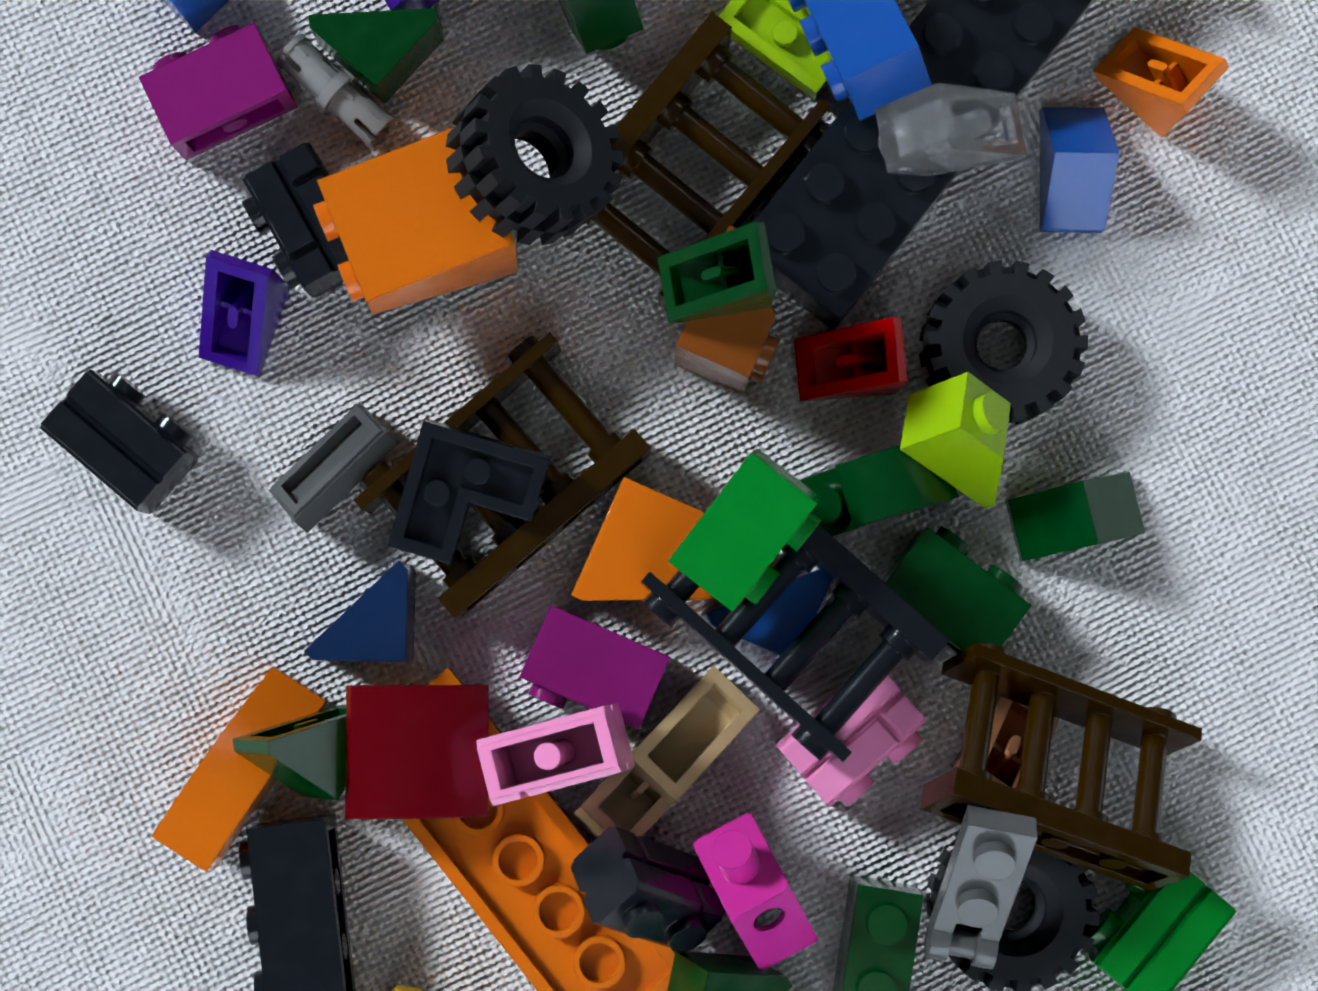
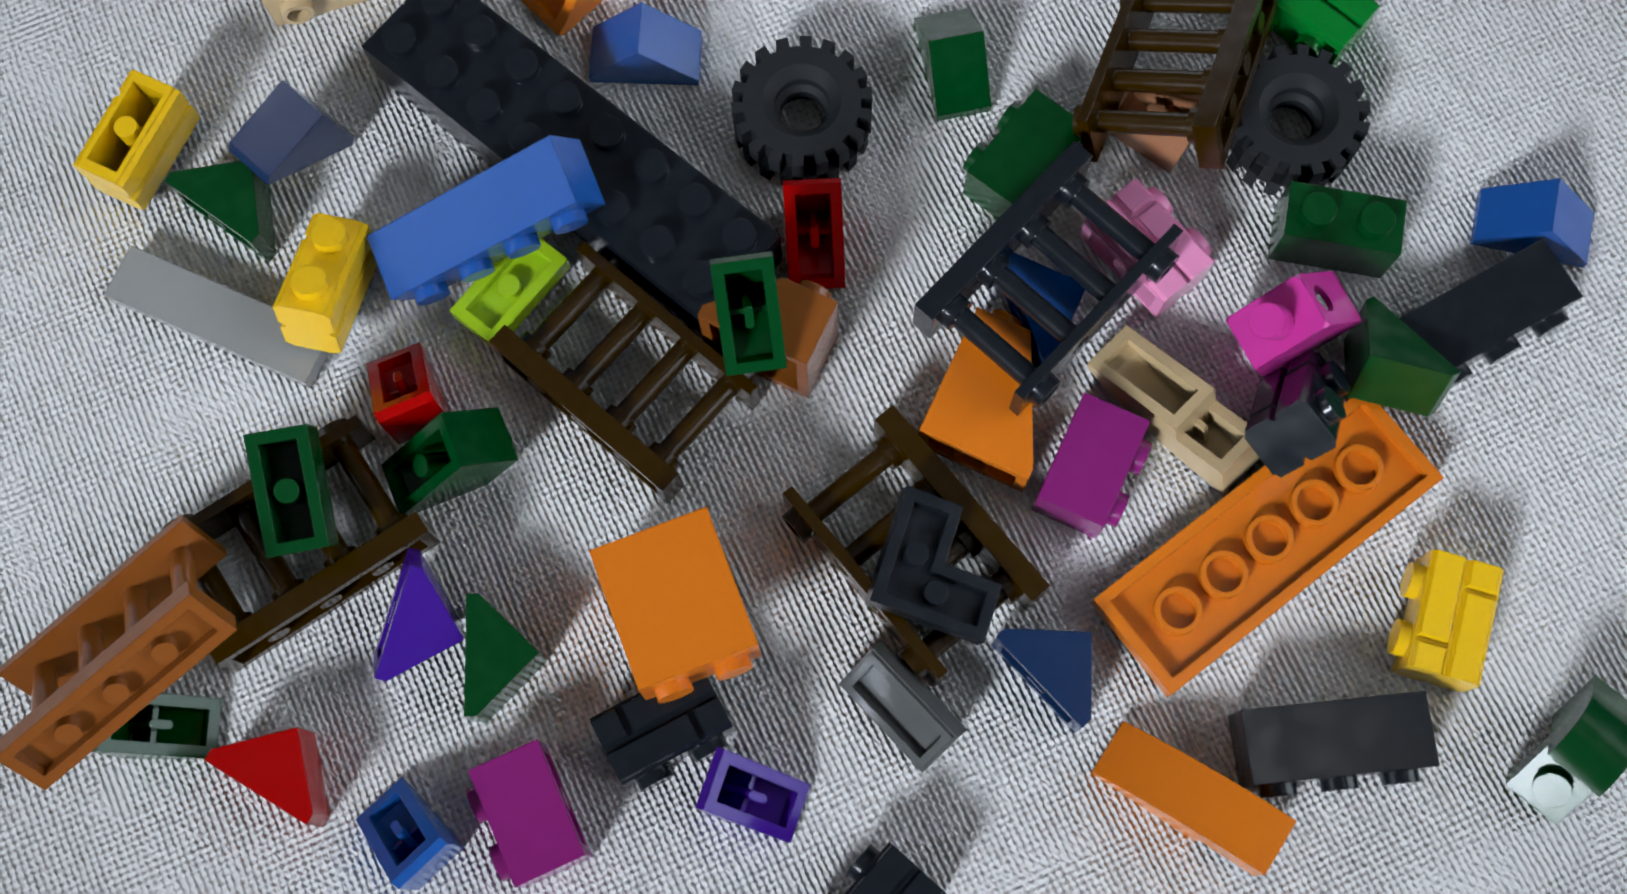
camera: 85 degrees left, 10 degrees down
(302, 752) = (1174, 718): dark green slope -> none
(335, 91) = (536, 700): light grey pin -> none
(415, 751) = (1176, 621): dark red slope -> none
(555, 754) = (1179, 485): bright pink brick -> none
(563, 131) = (613, 456): black tyre -> none
(746, 530) = (981, 299): green brick -> none
(875, 490) = (930, 212): dark green brick -> none
(949, 130) = (620, 130): clear slope -> none
(959, 434) = (887, 136): lime slope -> none
(980, 885) = (1287, 123): dark grey plate -> none

